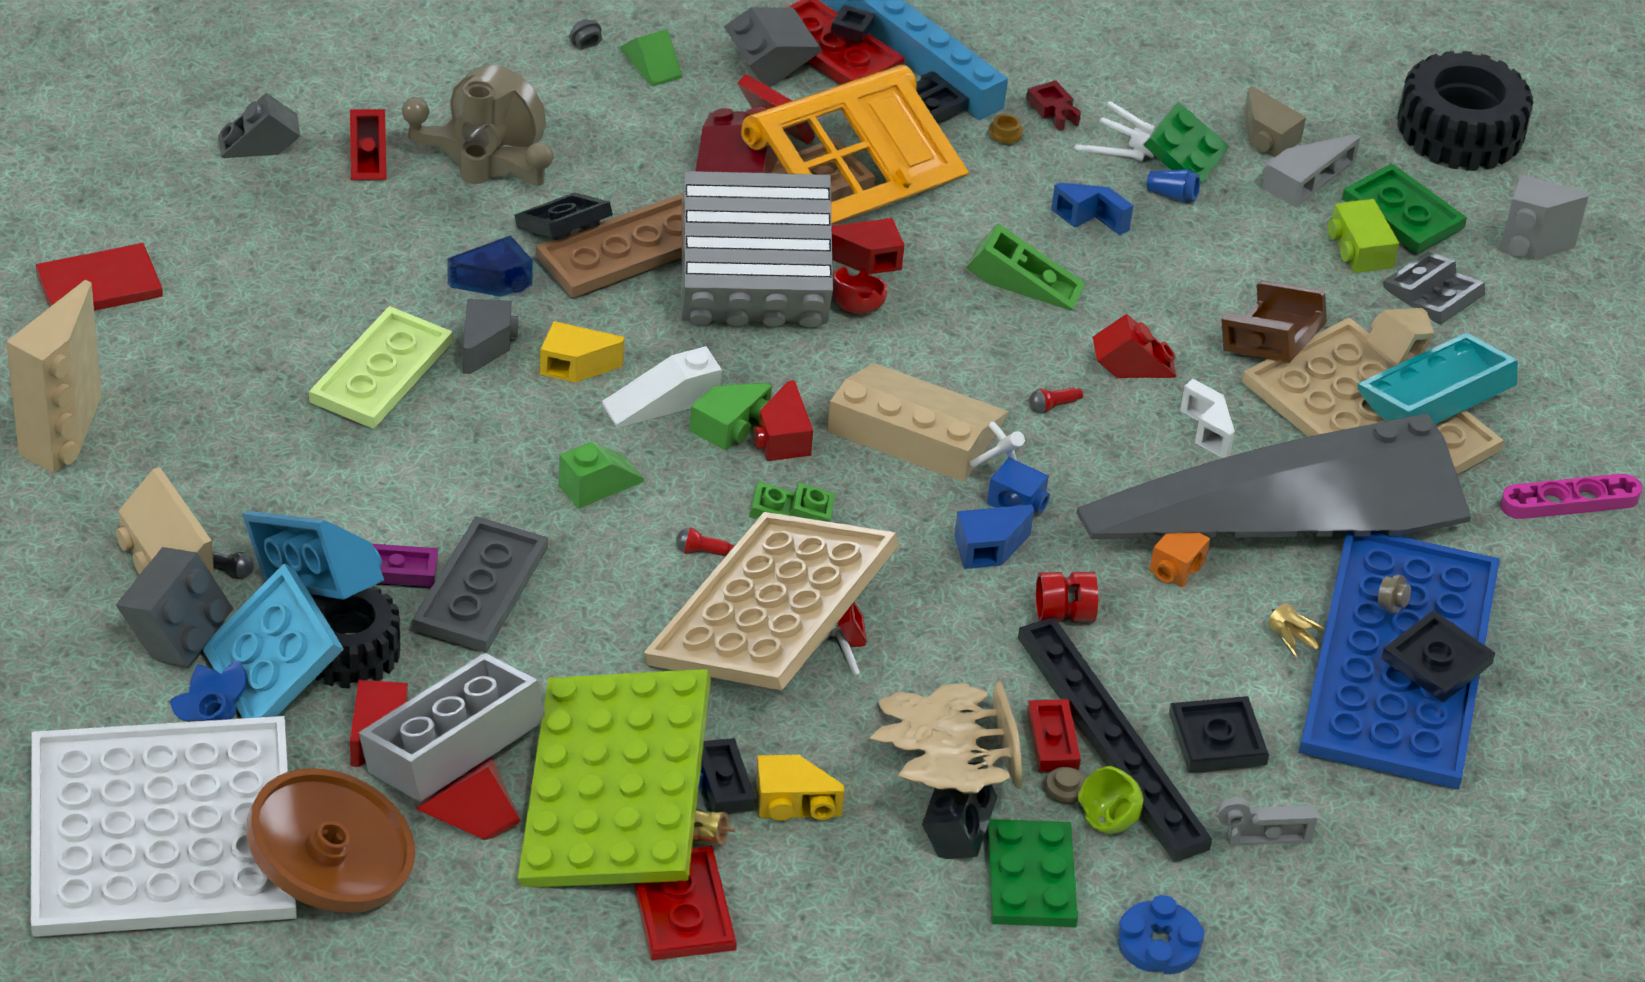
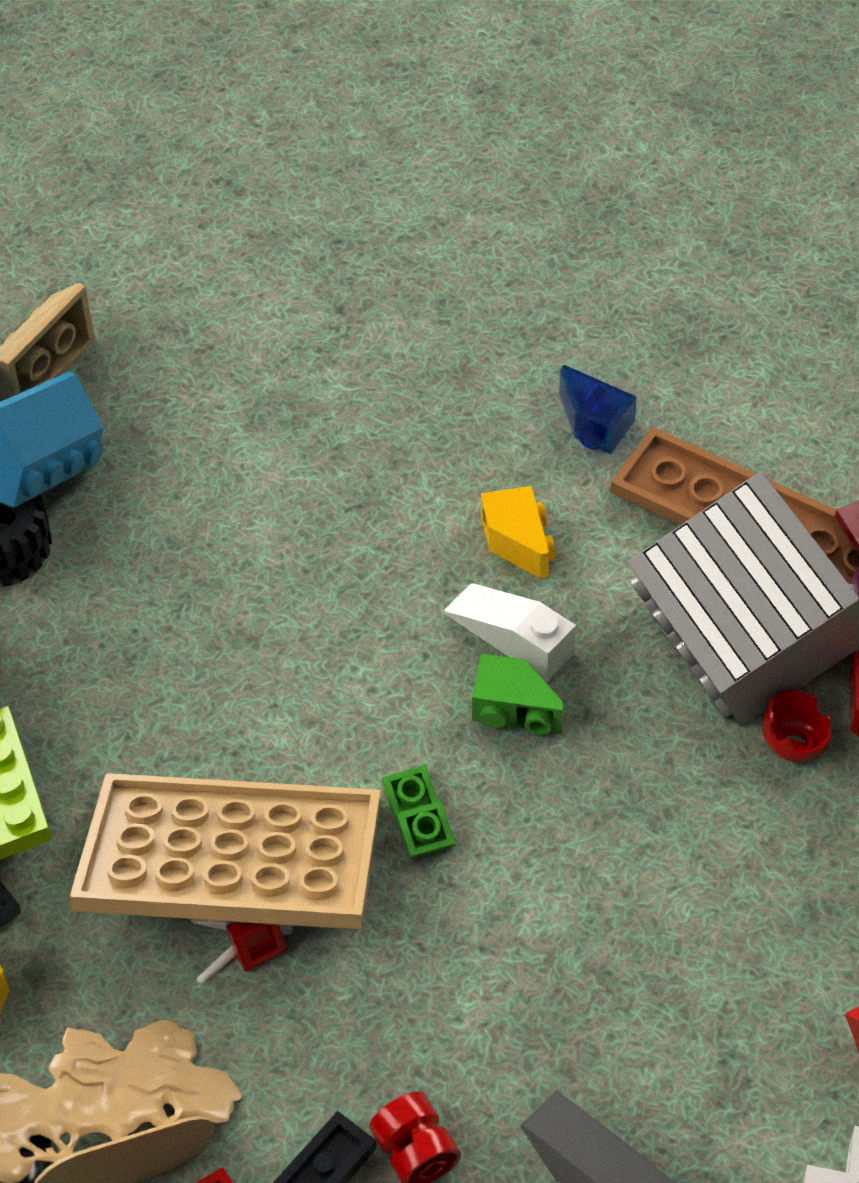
camera: 70 degrees right, 10 degrees up
(56, 380) = (162, 168): tan slope -> none
(116, 276) = (377, 151): red tile -> none
(261, 130) = (659, 155): dark grey slope -> none
(368, 144) = (705, 236): red slope -> none
(381, 367) = (393, 391): yellowish green plate -> none
(408, 564) = (119, 516): magenta plate -> none
(480, 584) = (134, 600): dark grey plate -> none
(487, 332) = (491, 445): dark grey slope -> none
(491, 127) = (780, 303): dark tan piece -> none
(563, 215) = (712, 427): black plate -> none
(595, 473) = (348, 622): bright green slope -> none
(691, 541) = (306, 747): red piece -> none
(784, 426) = (529, 750): red slope -> none
(913, 420) = (635, 871): tan slope -> none
(991, 534) = (477, 1024): blue slope -> none
(1005, 446) = (597, 970): white plant -> none
(1018, 485) = (569, 1020): blue brick -> none
(1044, 400) = (755, 988): red piece -> none

